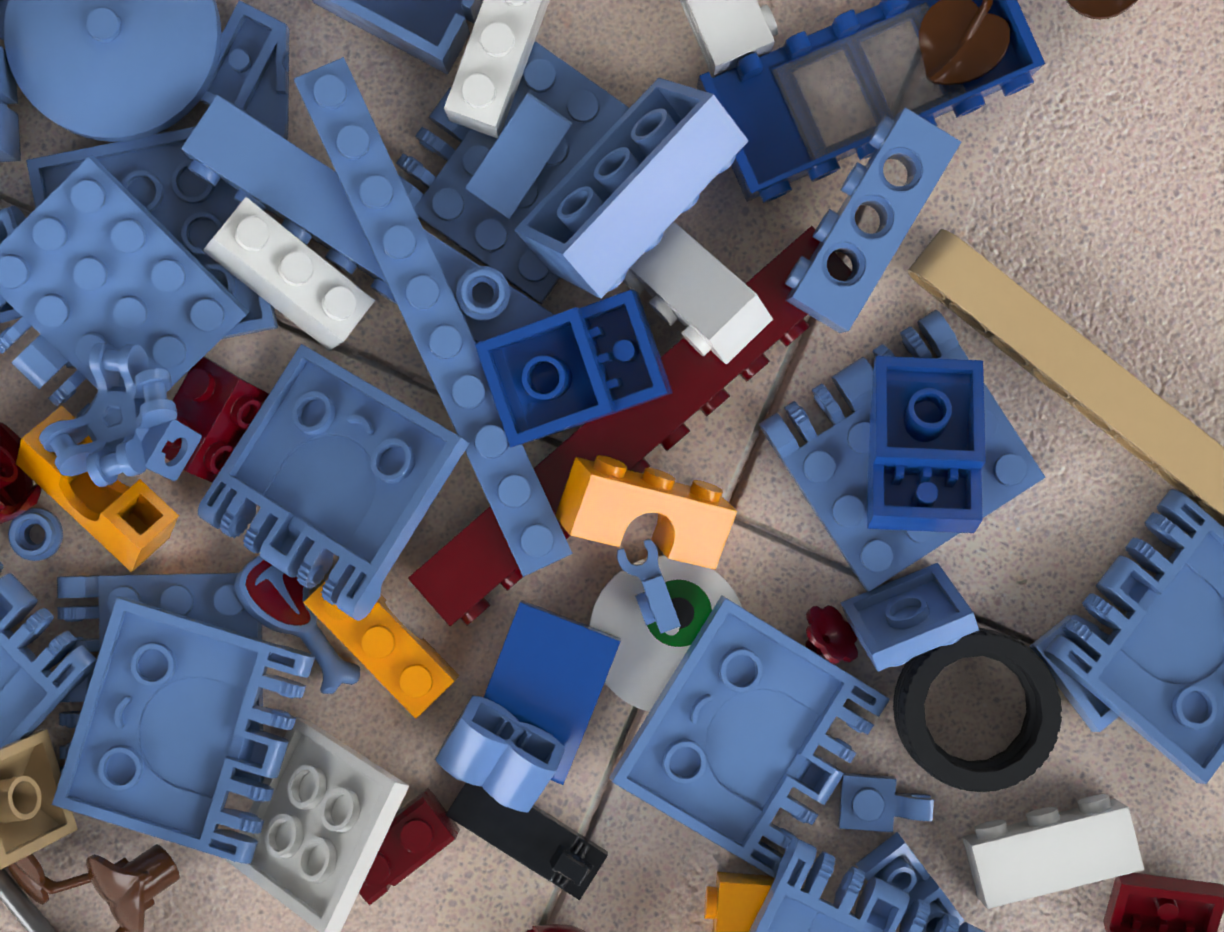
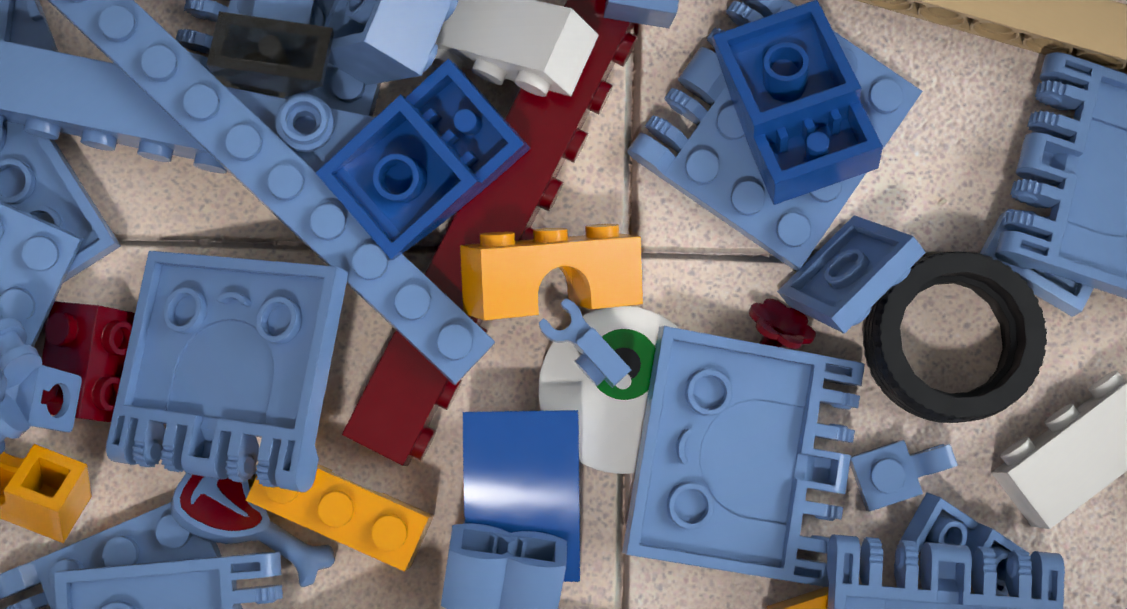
camera: 25 degrees left, 5 degrees down
(288, 275) = (104, 183): white brick -> none
(476, 221) = (269, 54): none -> clear smoke slope

